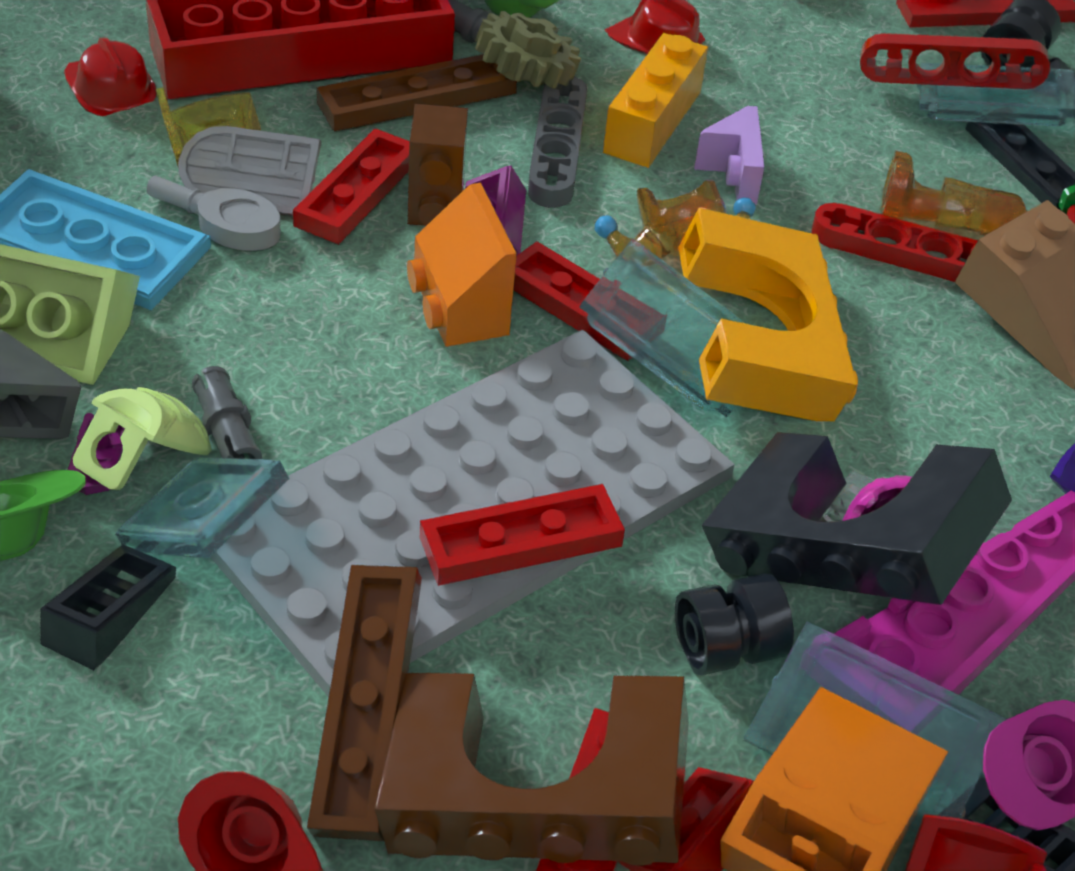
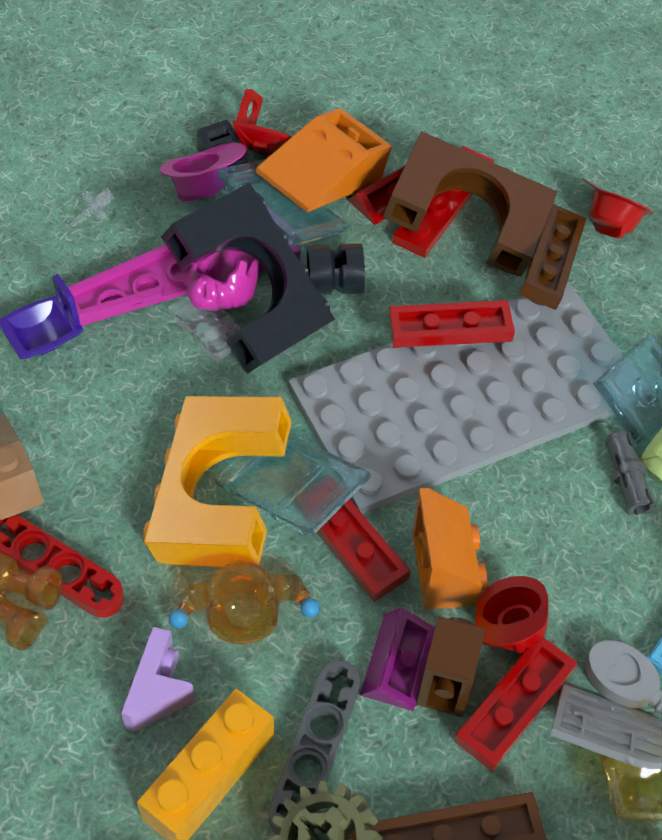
camera: 165 degrees left, 10 degrees up
(375, 210) = (513, 613): none -> red piece

